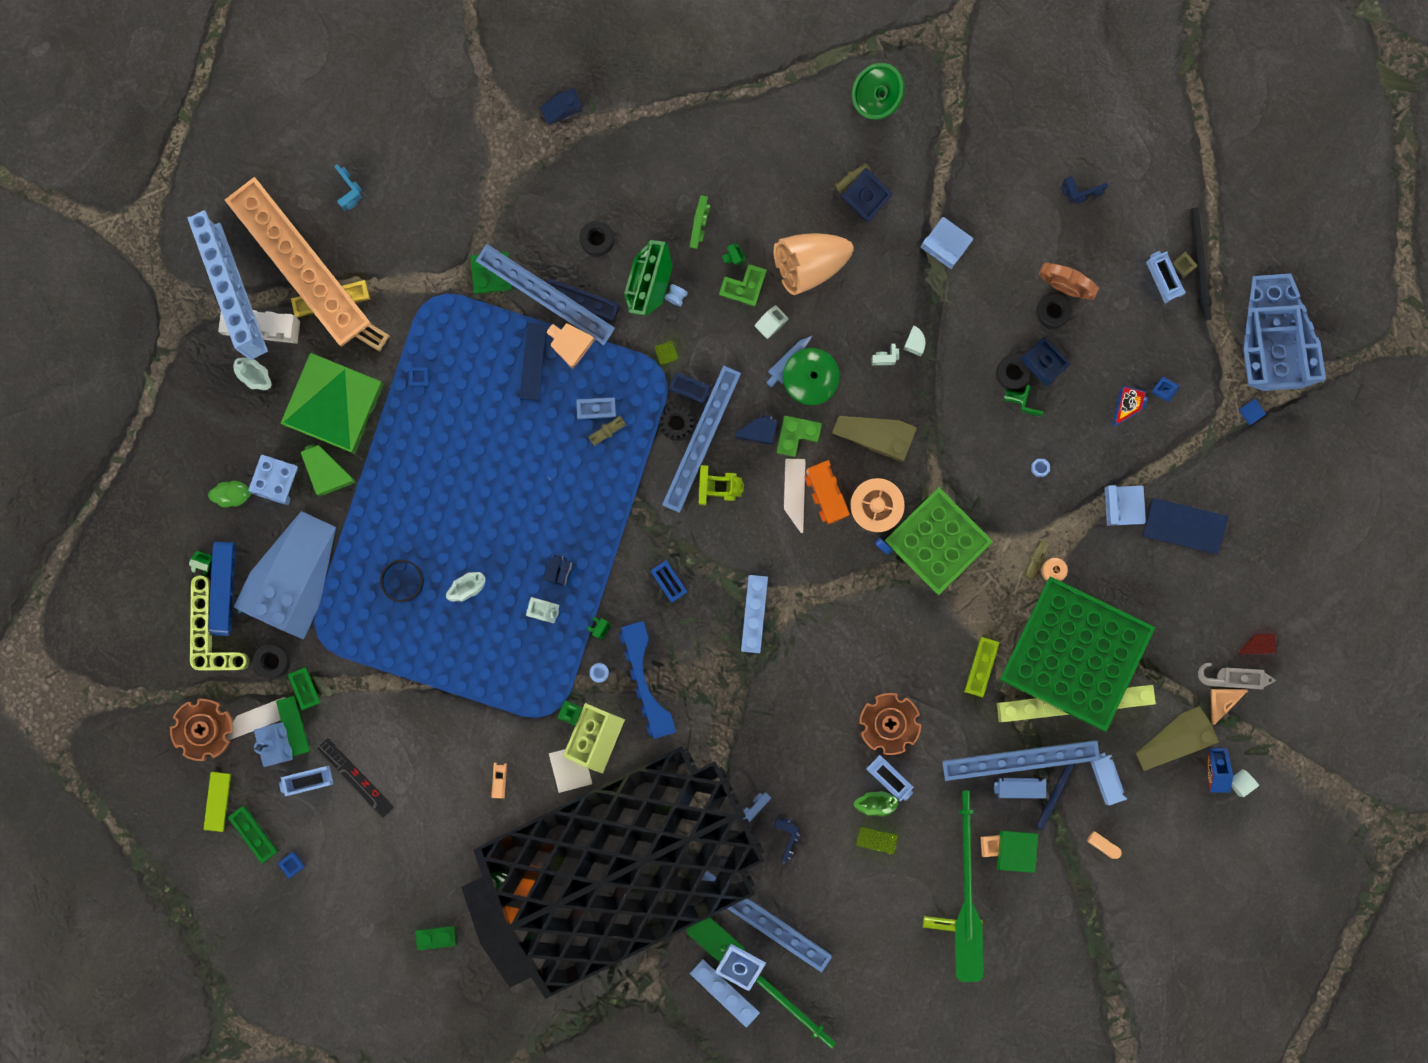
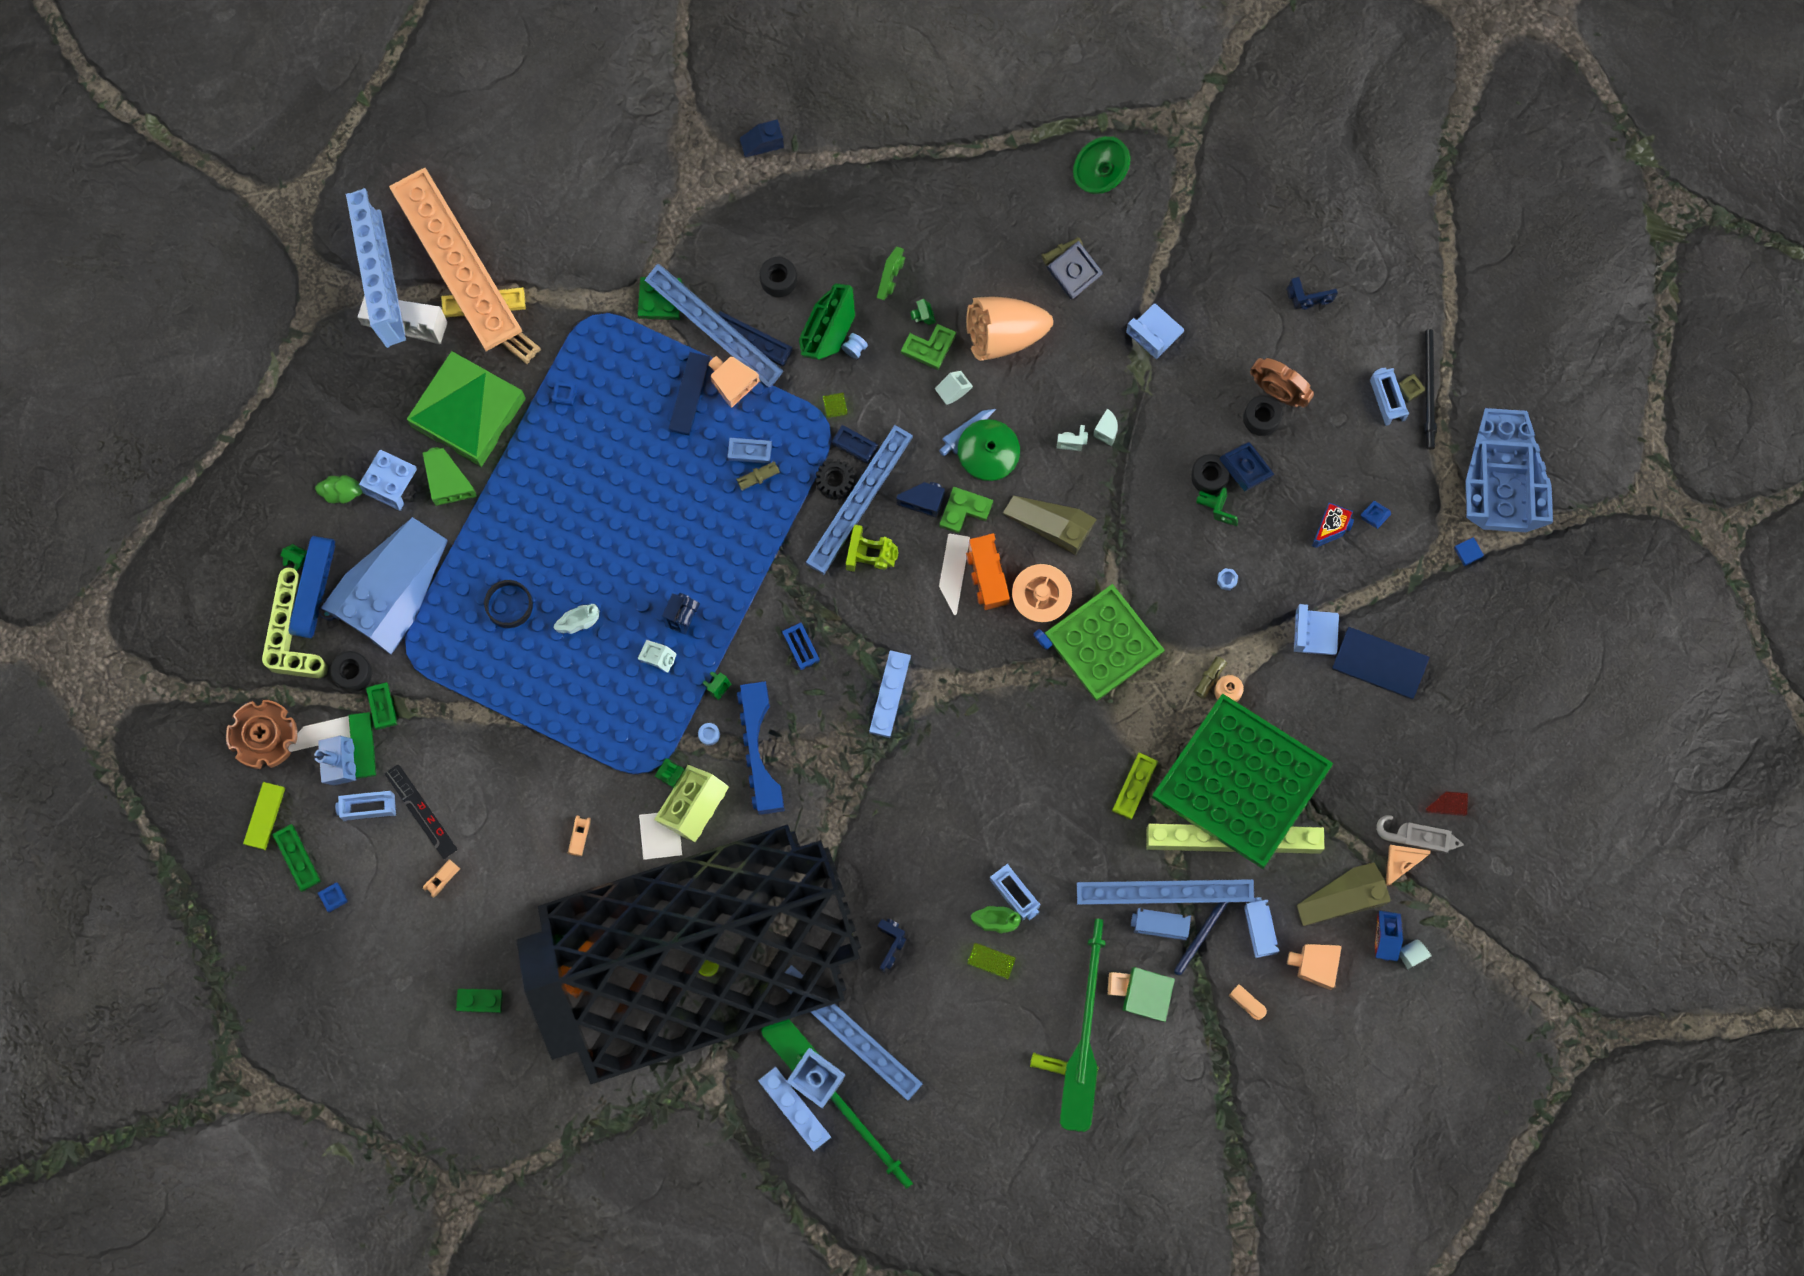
camera: 10 degrees right, 10 degrees down
(252, 374) = (385, 366): light aqua arm -> none
(349, 200) = (525, 201): dark azure bracket -> none
(385, 832) = (445, 874): none -> light nougat bar
(760, 801) = (865, 899): medium blue plate -> none
(903, 732) = (1038, 824): nougat piece -> none
(1160, 803) = (1317, 964): none -> light nougat torso

